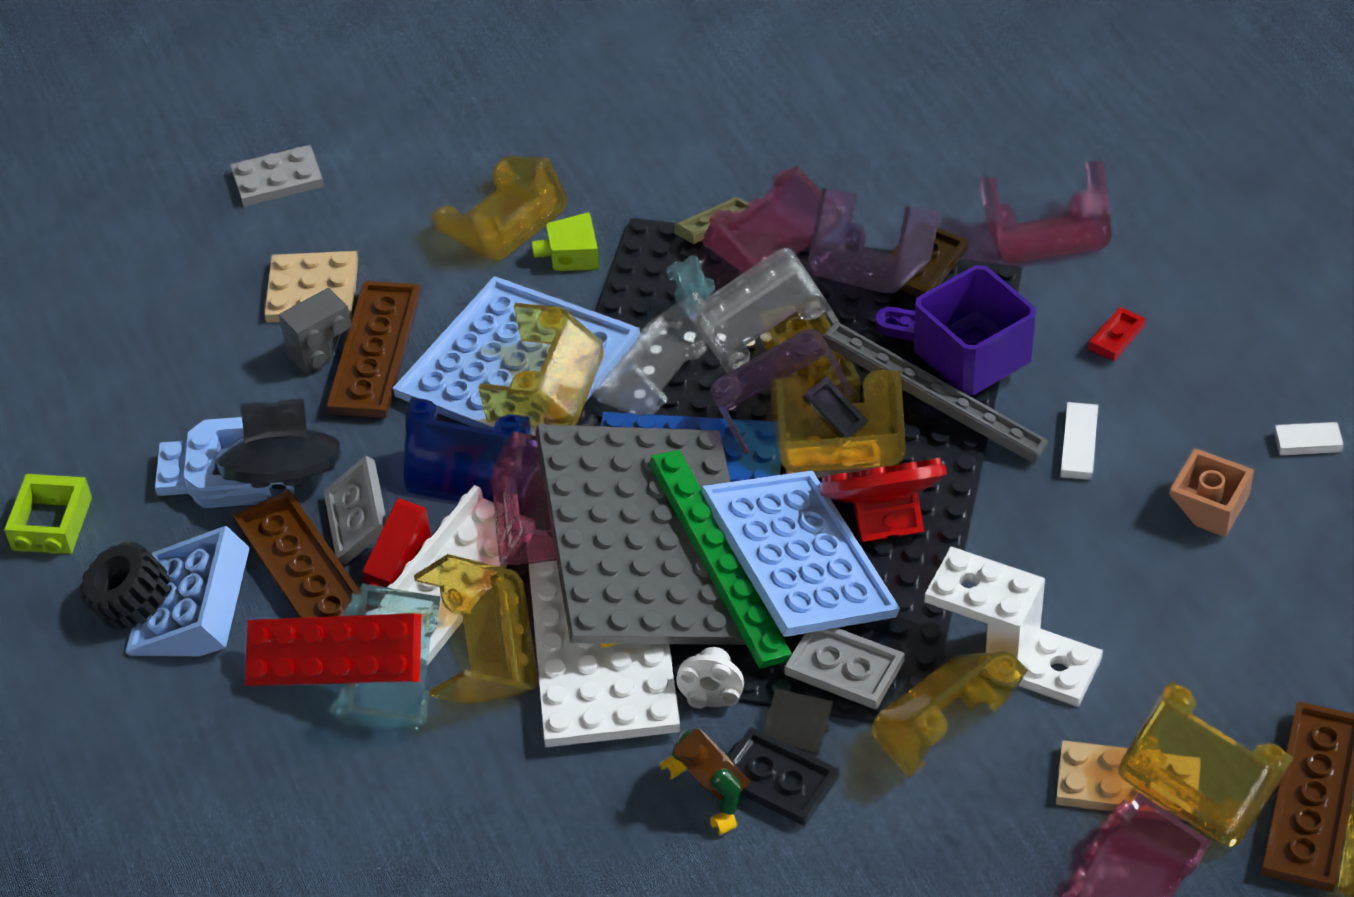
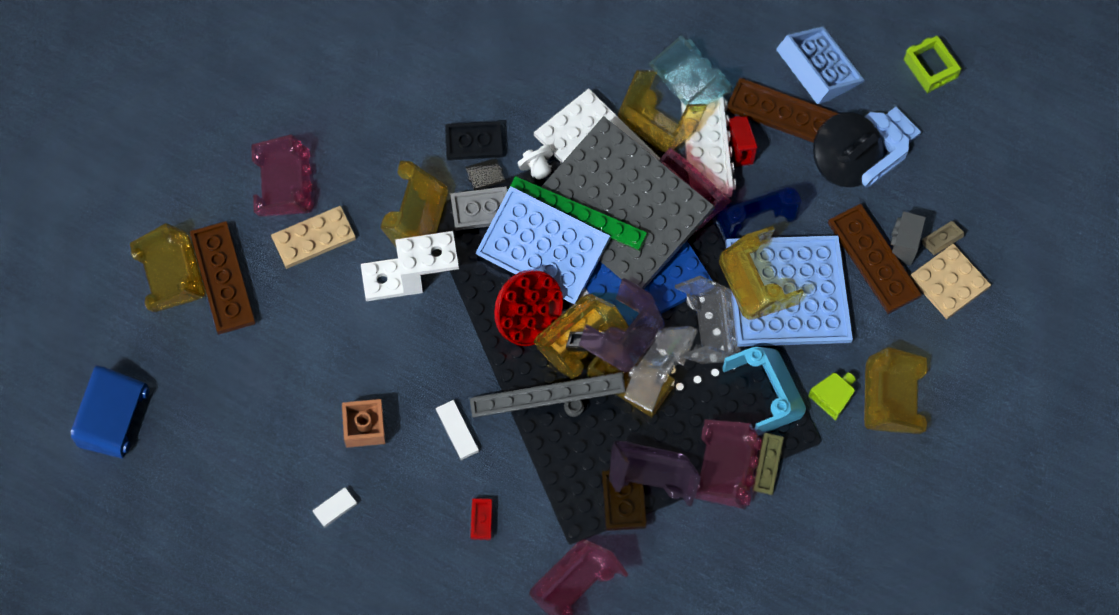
camera: 140 degrees right, 20 degrees up
(124, 585) = (849, 43): black tyre -> none
(261, 324) = (943, 238): none -> dark tan plate
(277, 175) = (1050, 347): light grey plate -> none
(333, 650) = (714, 57): red plate -> none
(355, 509) = (784, 150): light grey plate -> none
(626, 291) = (789, 404): none -> medium azure windscreen
(690, 278) = (733, 387): clear light blue hips -> none
(713, 770) = (502, 110): torso -> none
(896, 323) = (598, 442): dark purple plate -> none
(974, 329) = (553, 422): dark purple plate -> none
(1201, 770) = (299, 233): clear yellow windscreen -> none

